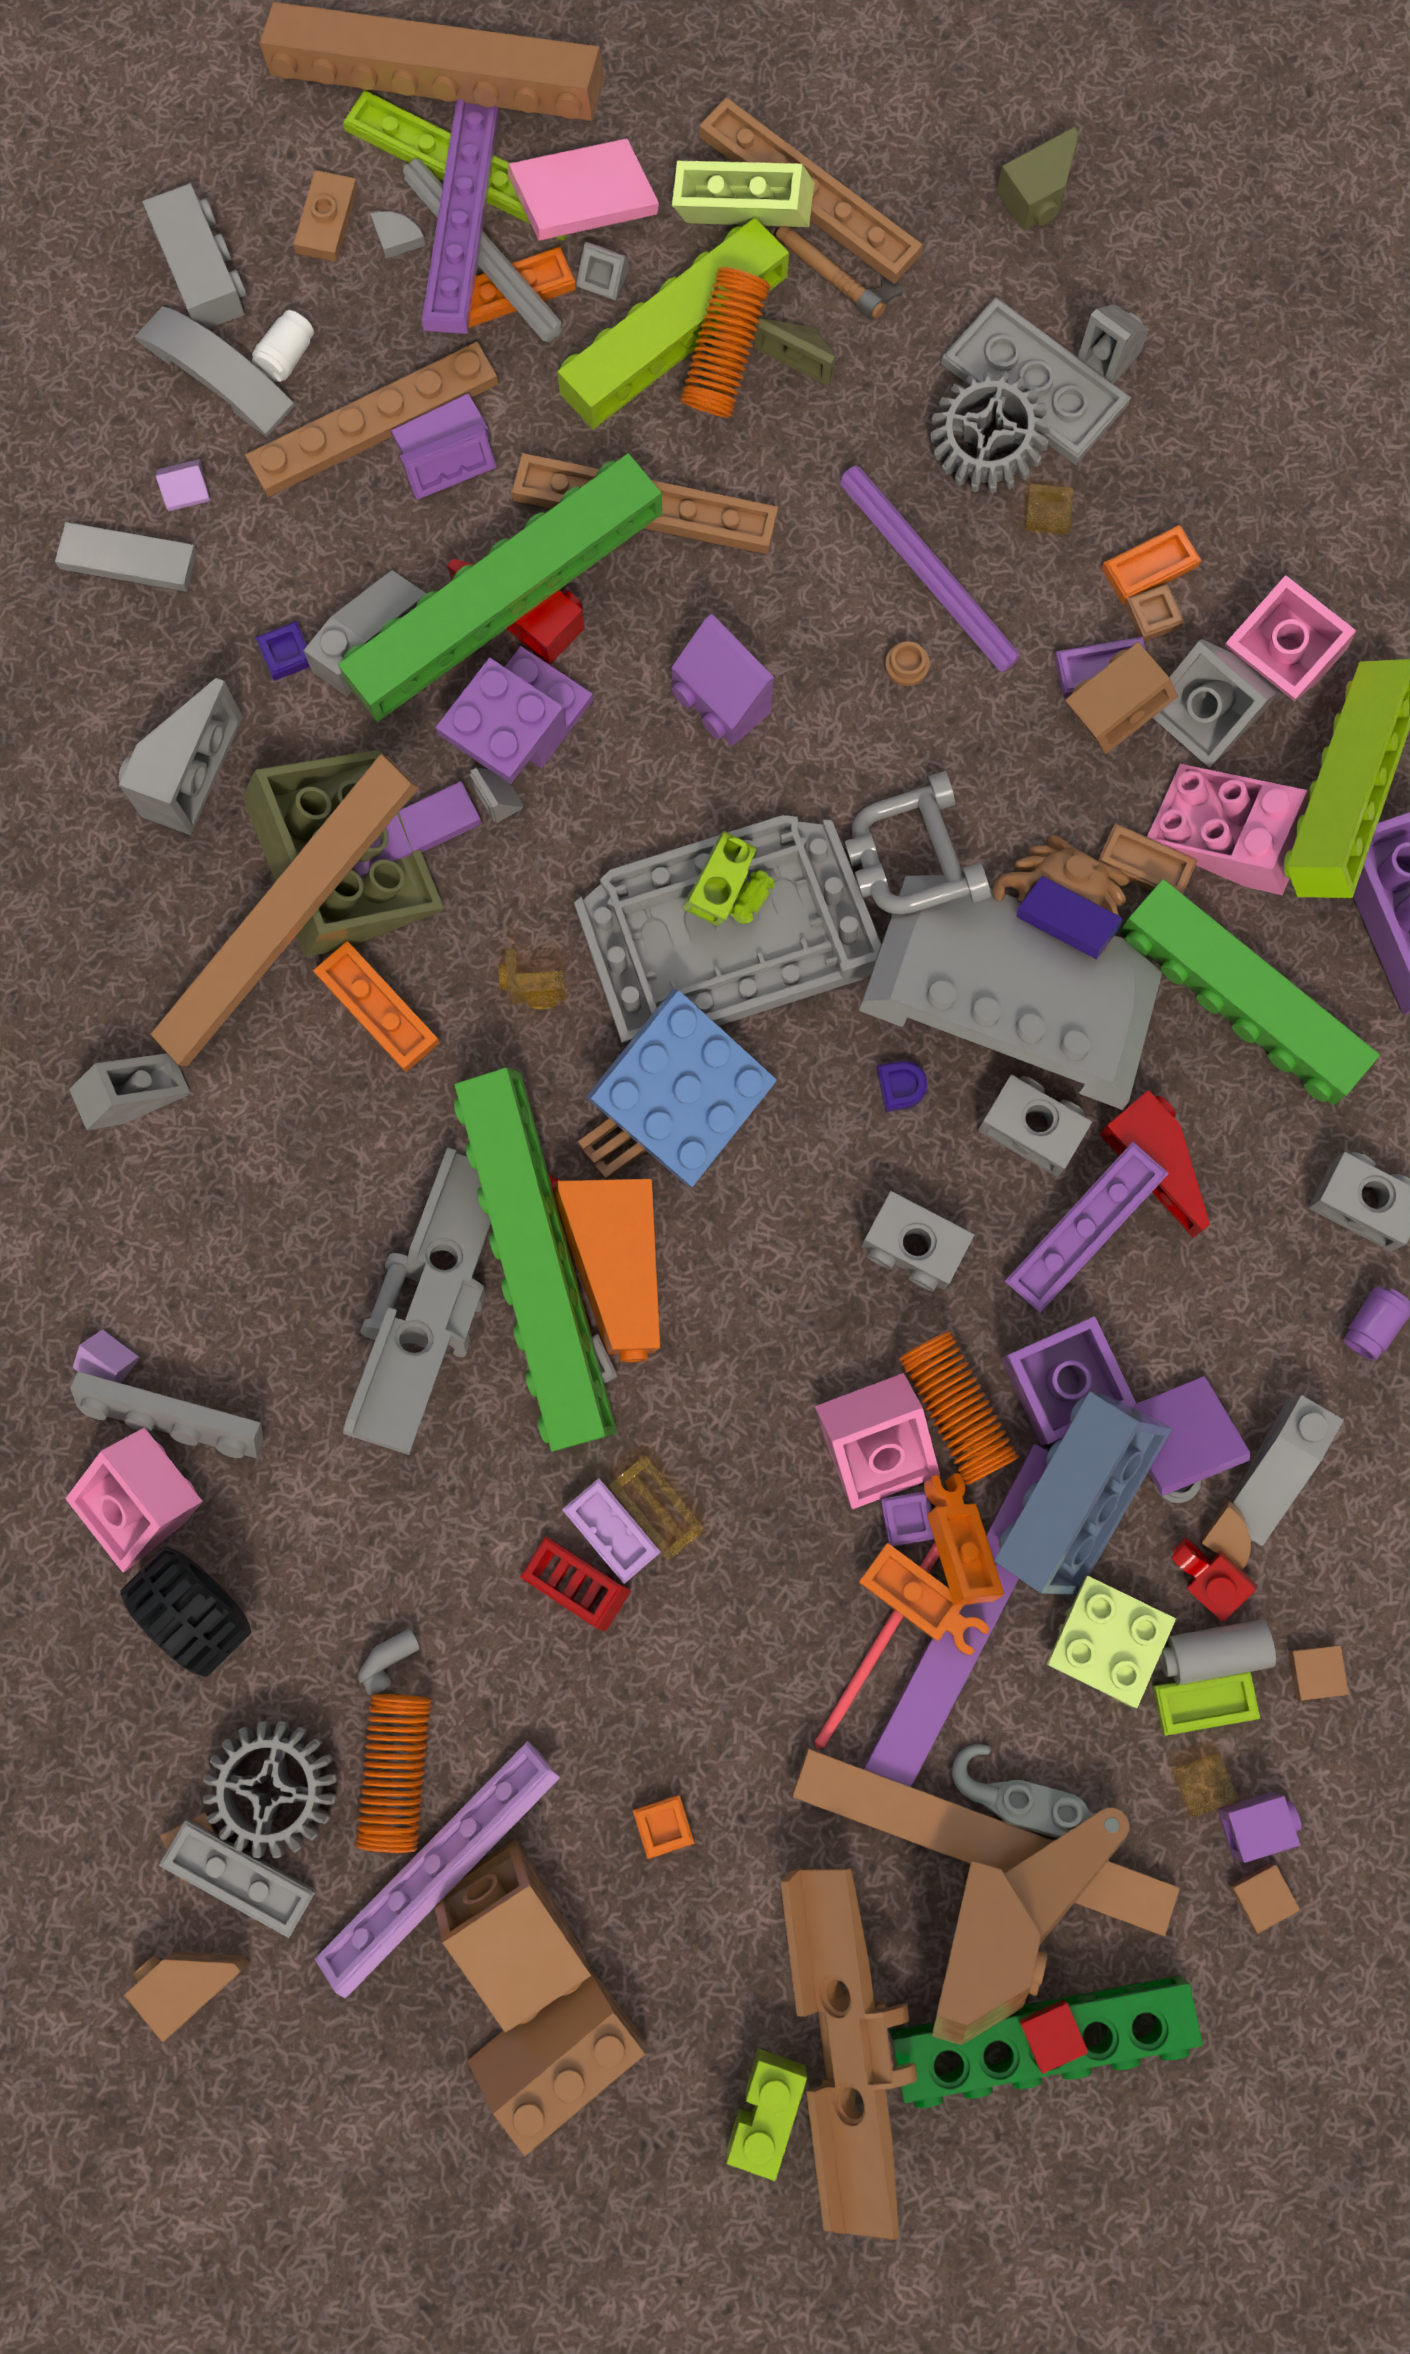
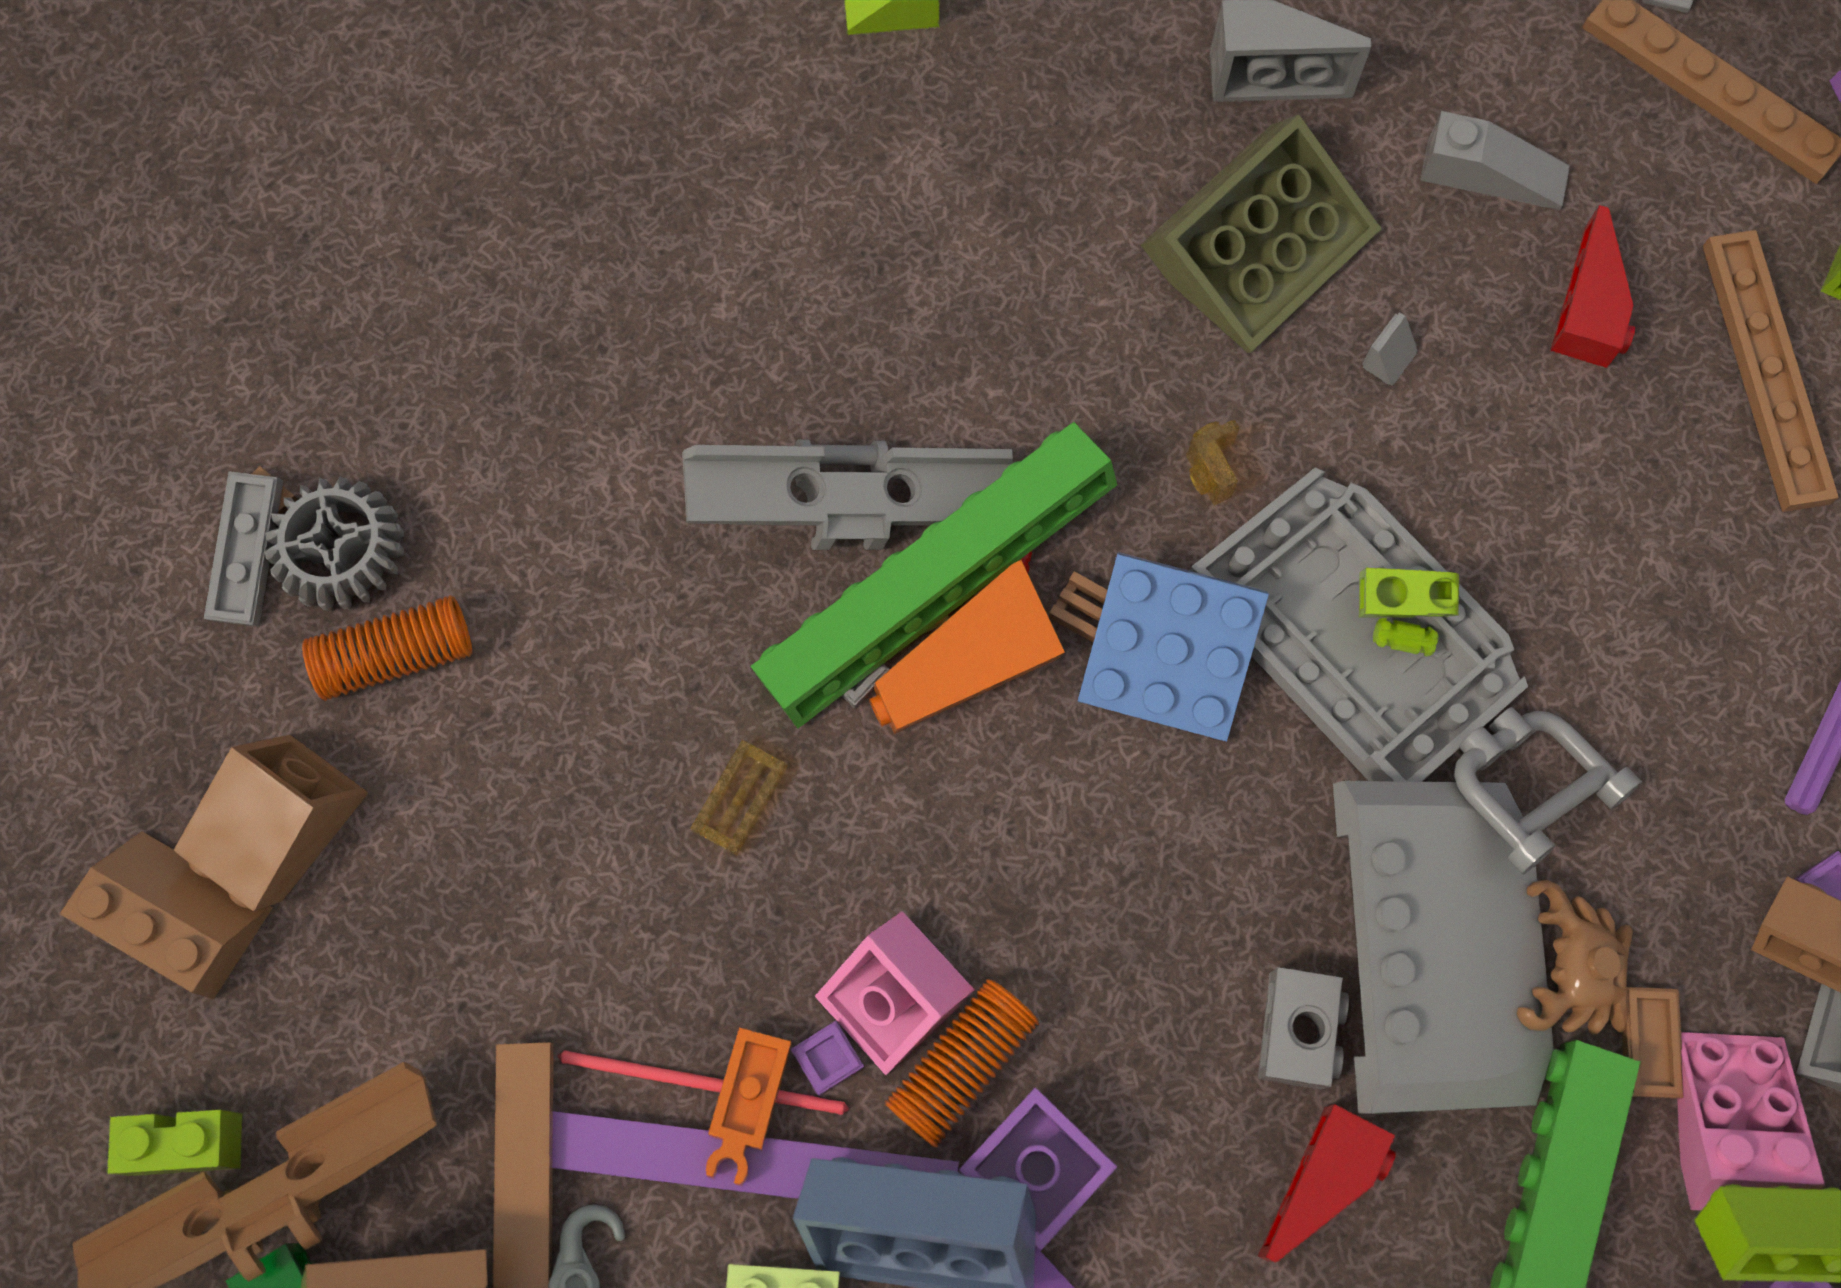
camera: 70 degrees right, 5 degrees down
(105, 1357) = (679, 236): lavender slope -> none
(127, 1089) = (941, 146): light grey slope -> none
(133, 1498) = (561, 312): bright pink slope -> none
(180, 1986) = (126, 539): medium nougat slope -> none
(182, 1420) = (648, 325): light grey plate -> none
(185, 1612) = (466, 393): black tyre -> none
(284, 650) = (1431, 99): dark purple tile -> none
(284, 910) = (1179, 197): medium nougat tile -> none
(376, 1006) = (1122, 330): orange plate -> none
(382, 1656) = (493, 594): light grey arm -> none
(426, 825) = (1327, 301): medium lavender tile -> none
(436, 1869) = (313, 727): lavender tile -> none
(438, 424) = (1734, 150): medium lavender tile -> none
(448, 461) = (1708, 167): medium lavender plate -> none
(501, 587) = (1607, 261): bright green brick -> none
(514, 714) = (1480, 331): medium lavender bracket -> none
(609, 1605) = (635, 780): red slope -> none
(611, 1531) = (698, 761): lavender plate -> none
(663, 1826) = (427, 930): orange tile -> none
(722, 682) = (1617, 515): medium lavender slope -> none
(901, 1085) = (1280, 873): dark purple tile -> none
(907, 663) = (1740, 699): medium nougat plate -> none
(944, 1242) = (1134, 922): light grey brick -> none
(962, 1543) = (818, 1122): orange plate -> none
(1069, 917) = (1544, 972): dark purple tile -> none
(1086, 1227) = (1216, 1127): medium lavender tile -> none

